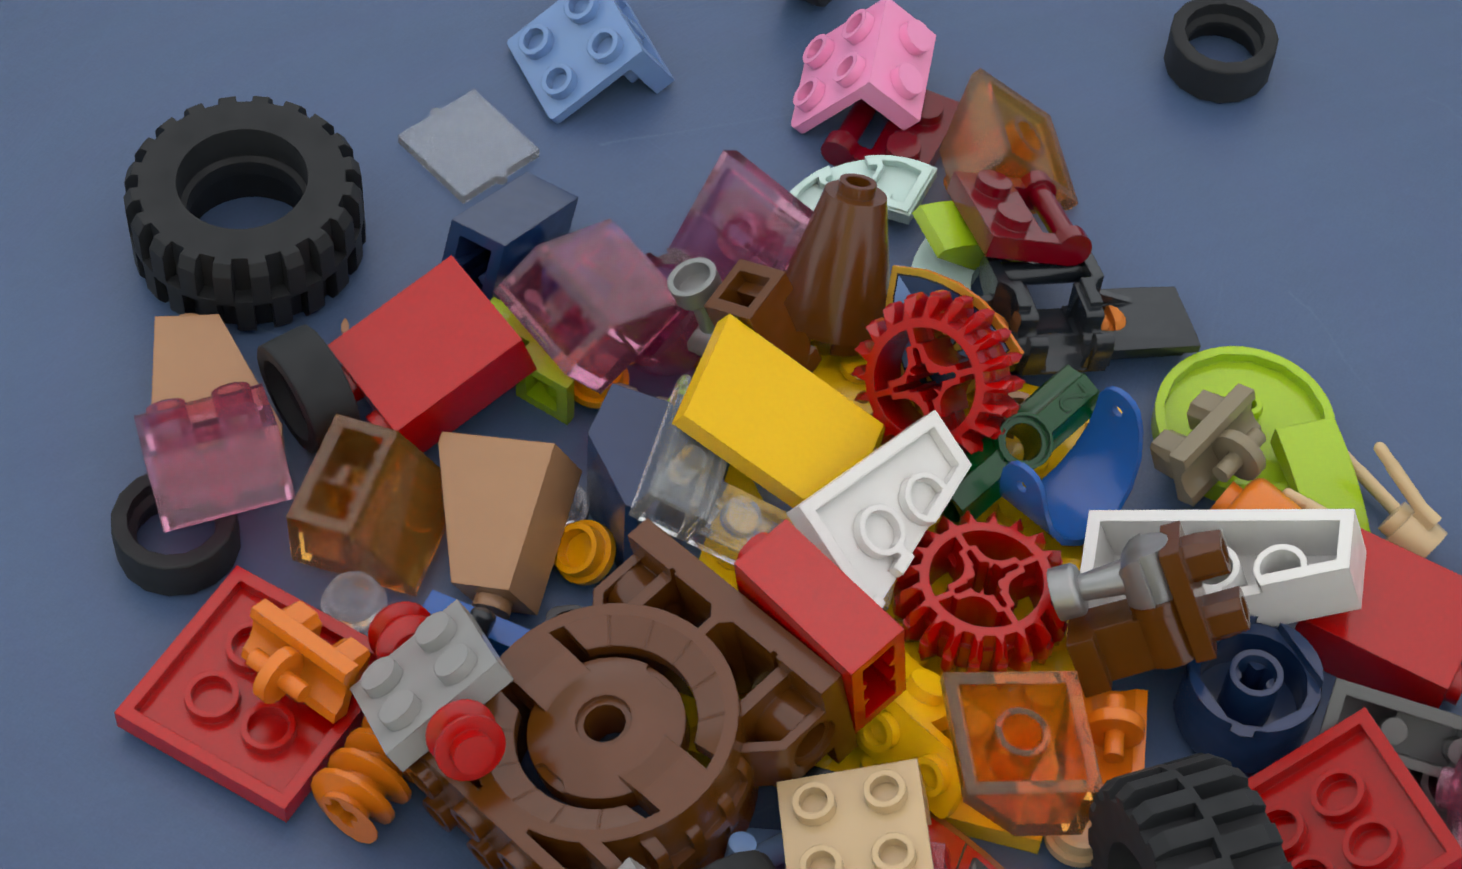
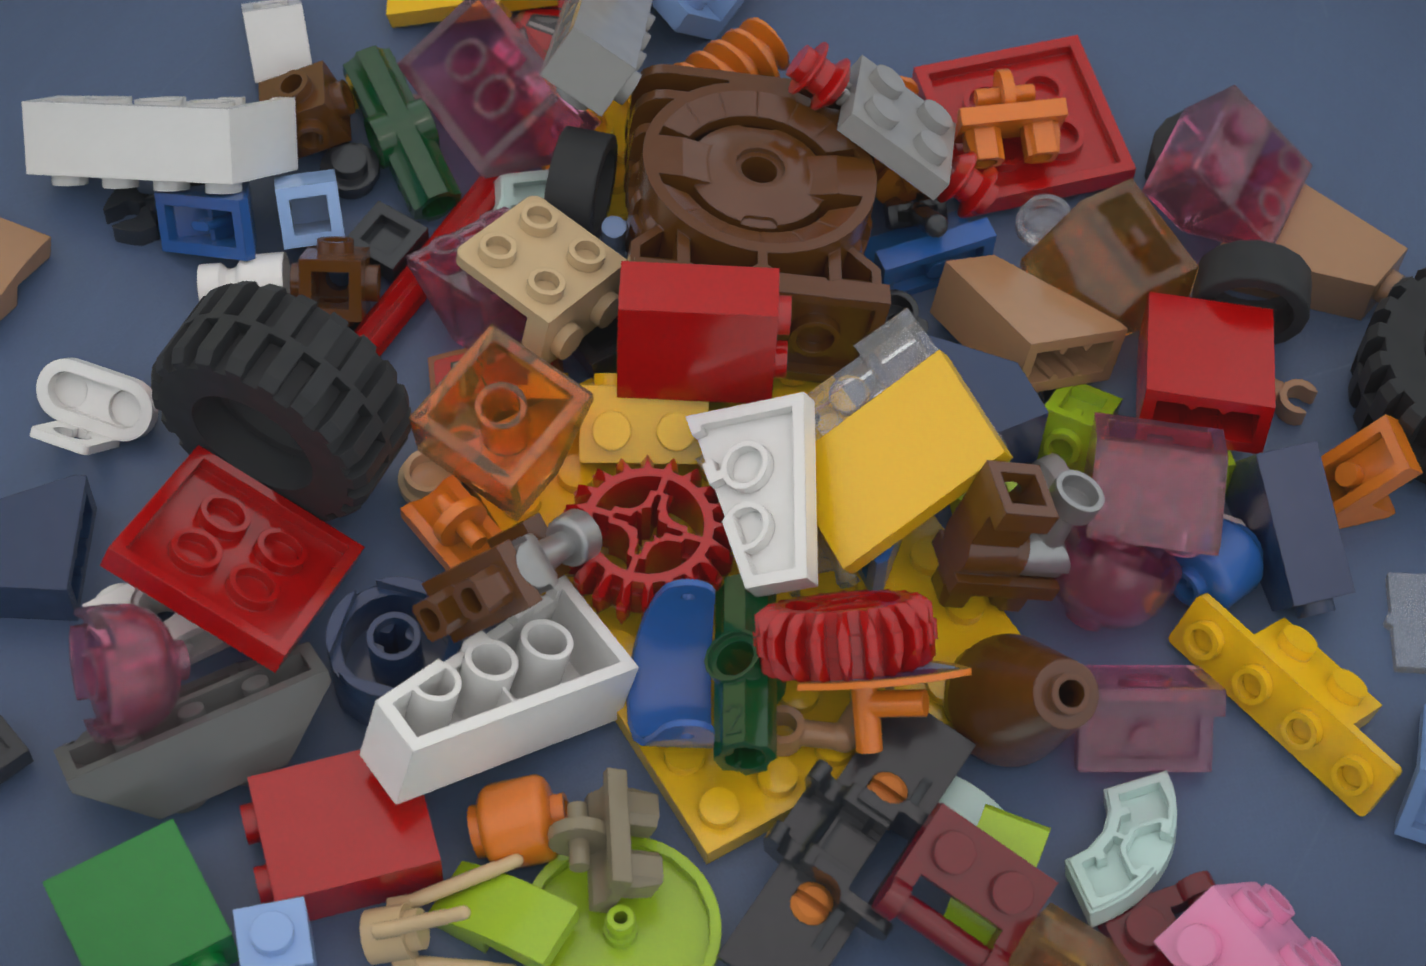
camera: 135 degrees right, 5 degrees up
(406, 227) = (1367, 470): none -> orange slope
(549, 423) = (1071, 422): none -> lime bracket
(630, 169) = (1293, 696): none -> yellow bracket

